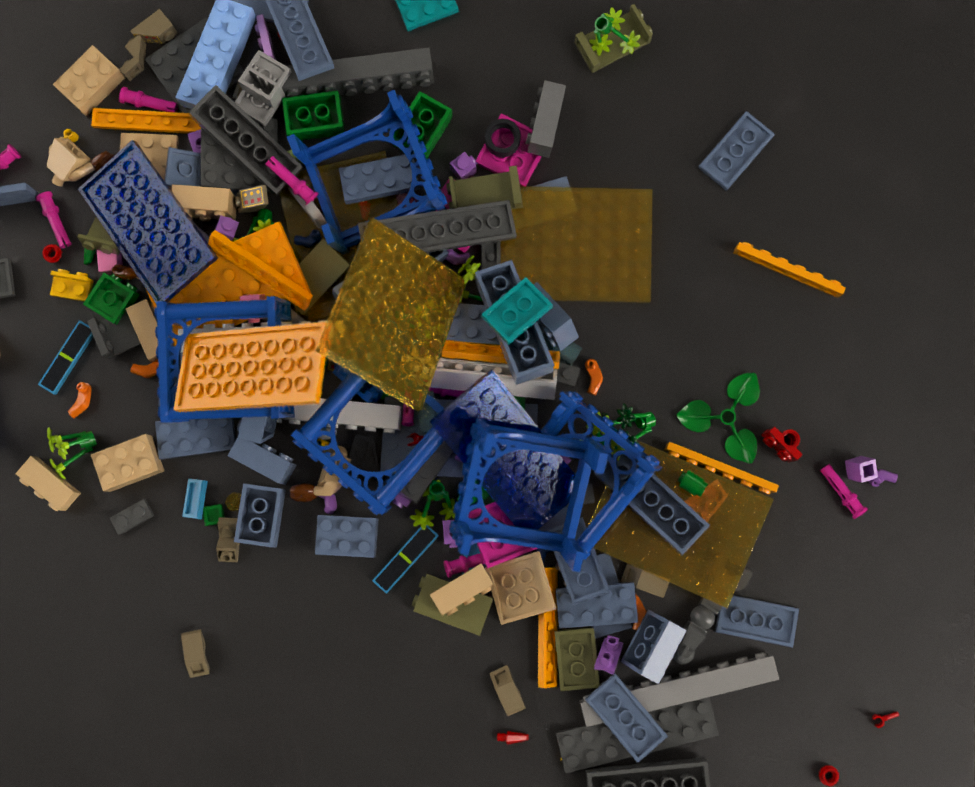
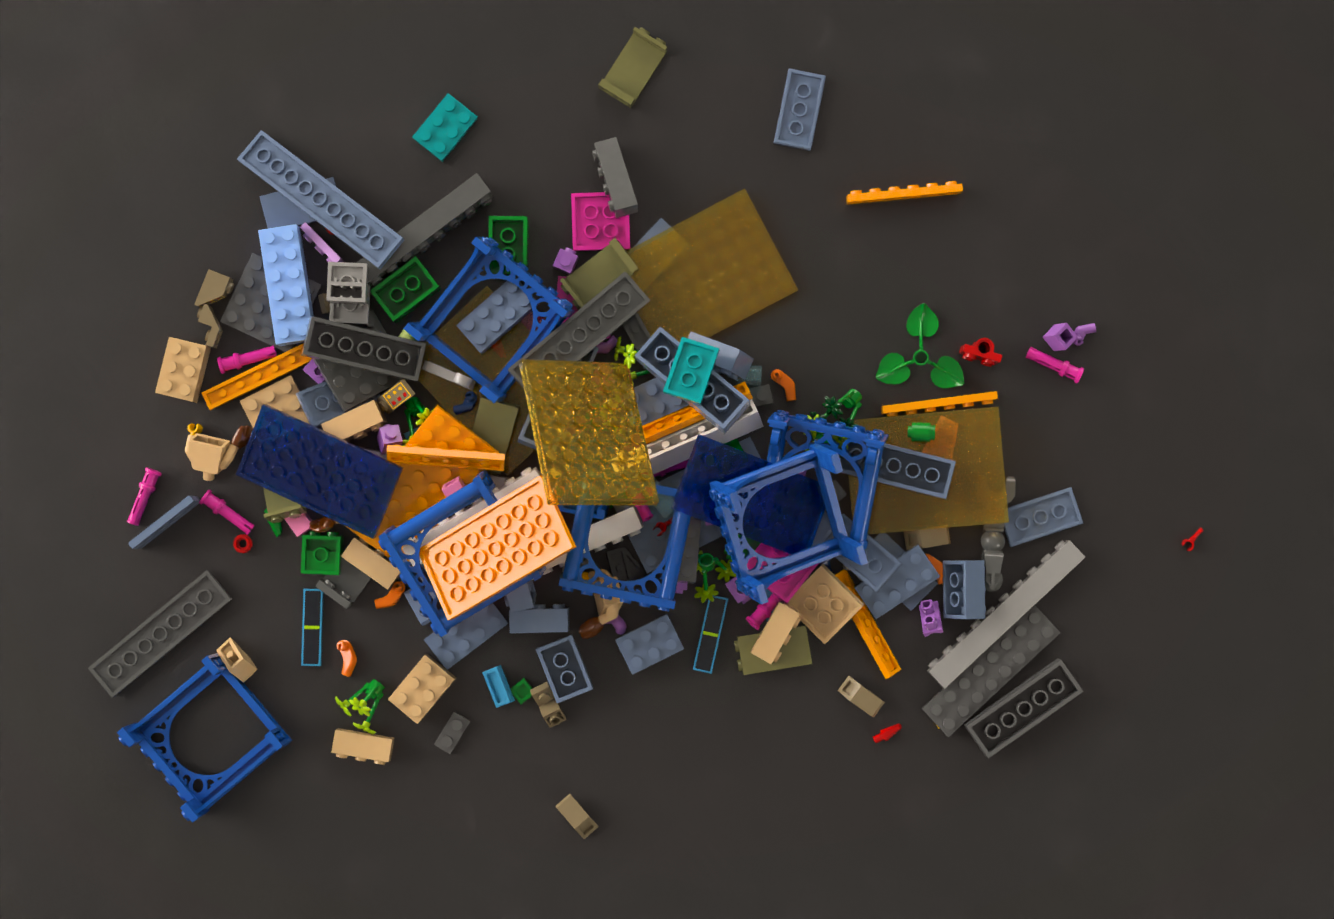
camera: 30 degrees left, 5 degrees up
(71, 286) = (277, 563): yellow bracket -> none
(233, 501) = (534, 669): clear yellow plate -> none
(299, 187) = (435, 363): dark pink pin -> none
(502, 123) = (589, 202): black tyre -> none
(576, 658) = (905, 636): olive plate -> none
(605, 25) = (621, 65): lime plant -> none
(626, 717) = (973, 661): sand blue tile -> none
(834, 775) = (1176, 613): red plate -> none

